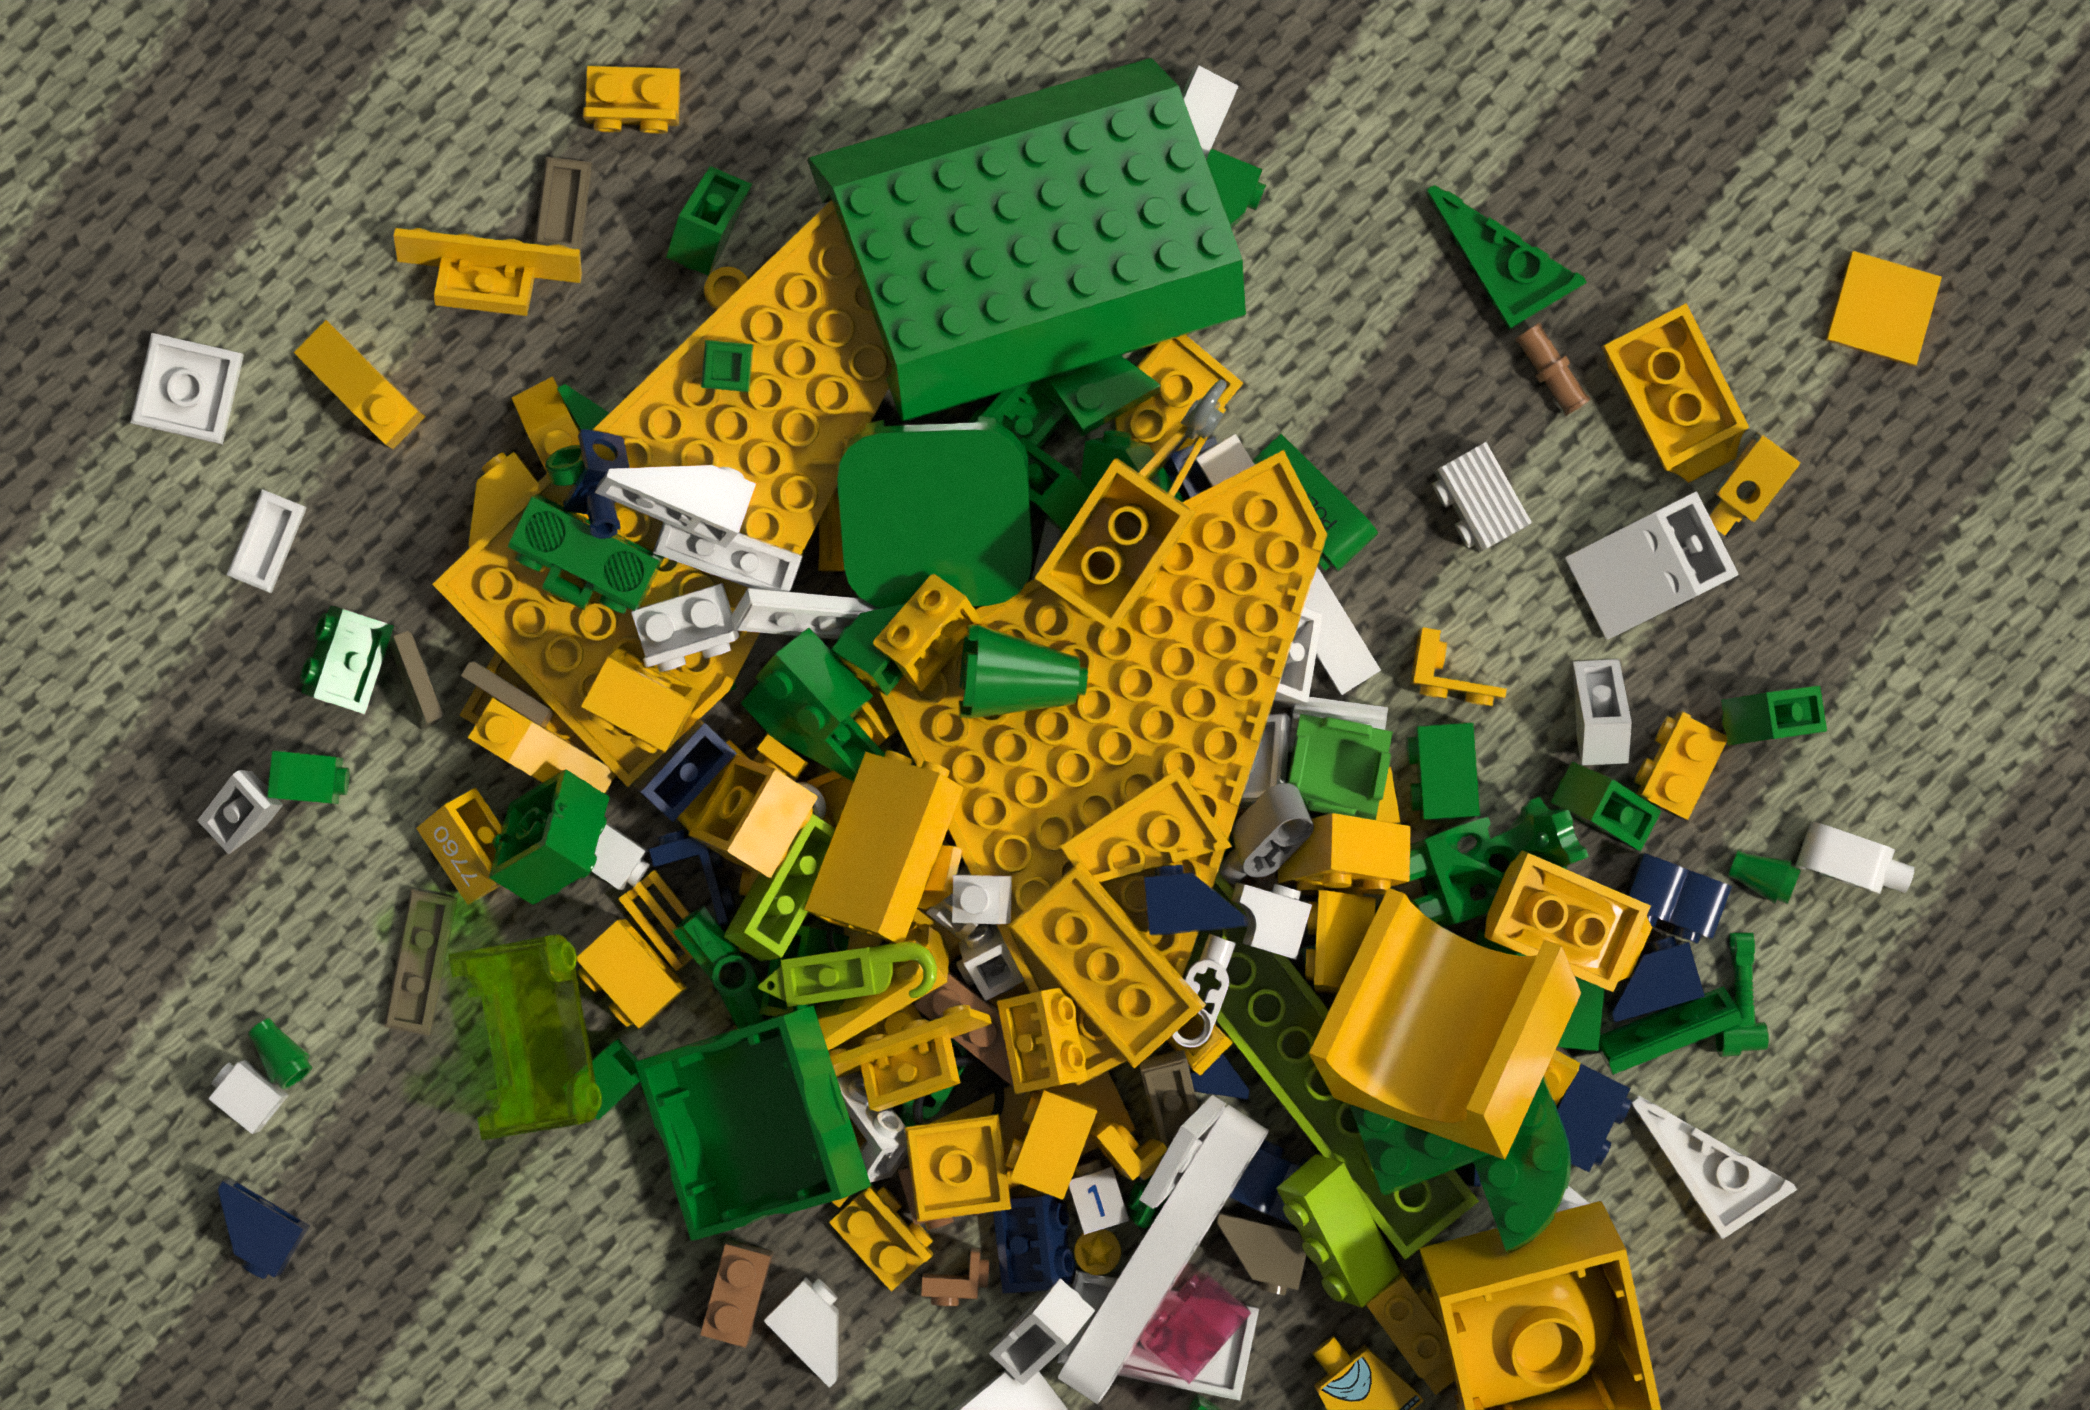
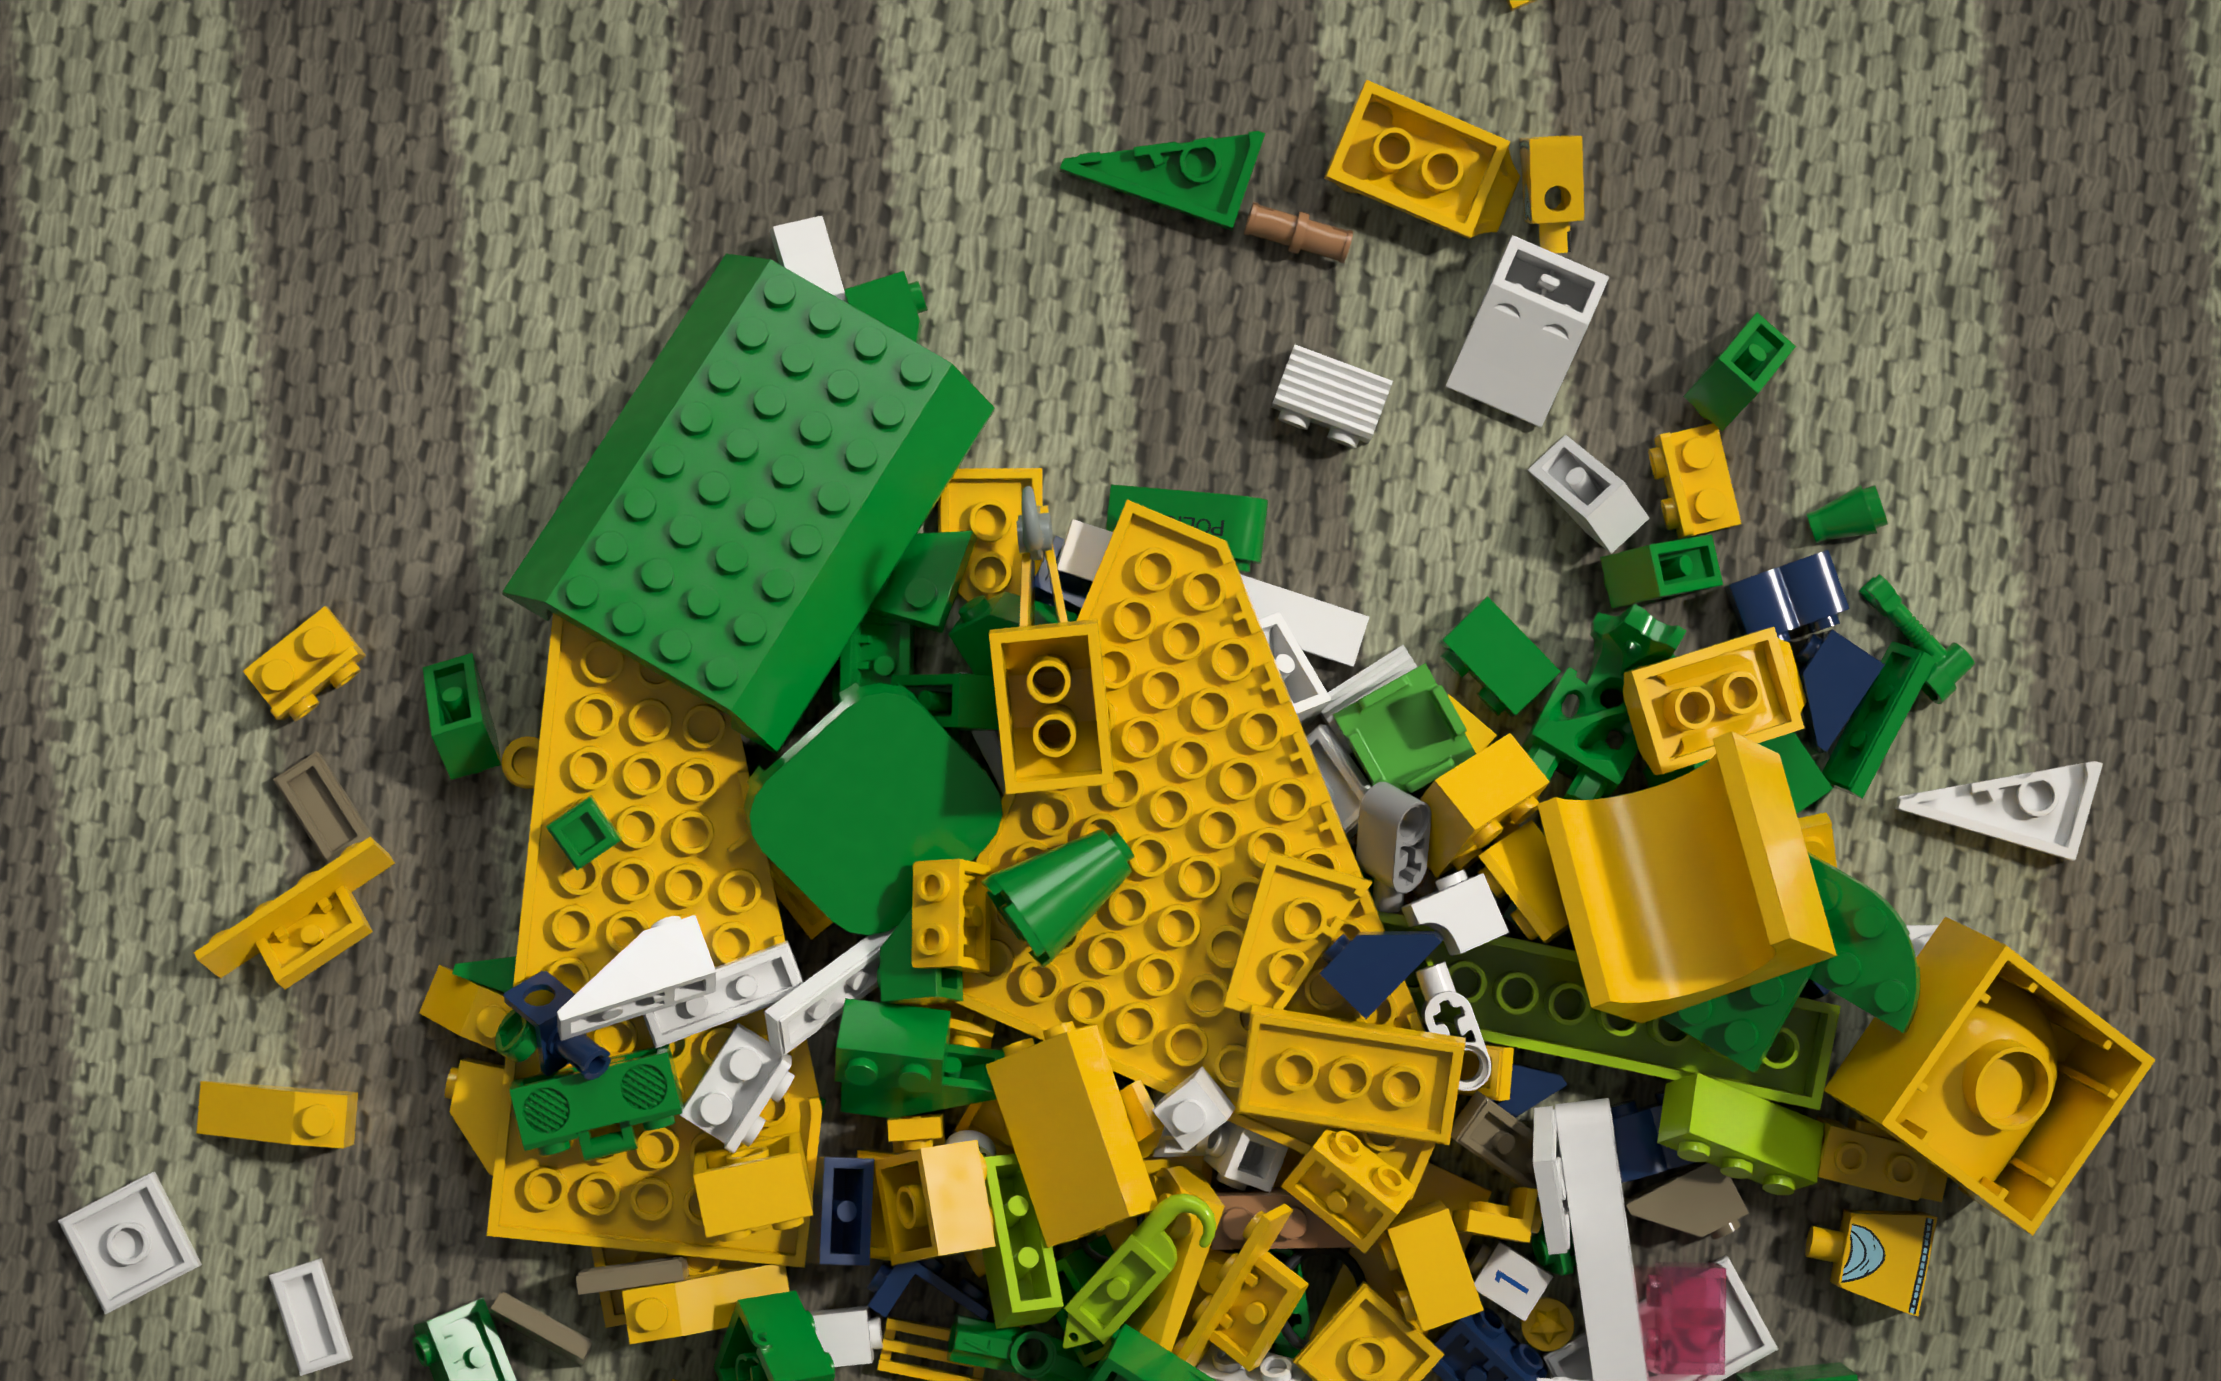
camera: 35 degrees left, 0 degrees up
(1431, 655) = (1401, 568): yellow bracket -> none
(1589, 1113) = (1870, 848): dark blue brick -> none
(1853, 860) = (1912, 439): white piece -> none

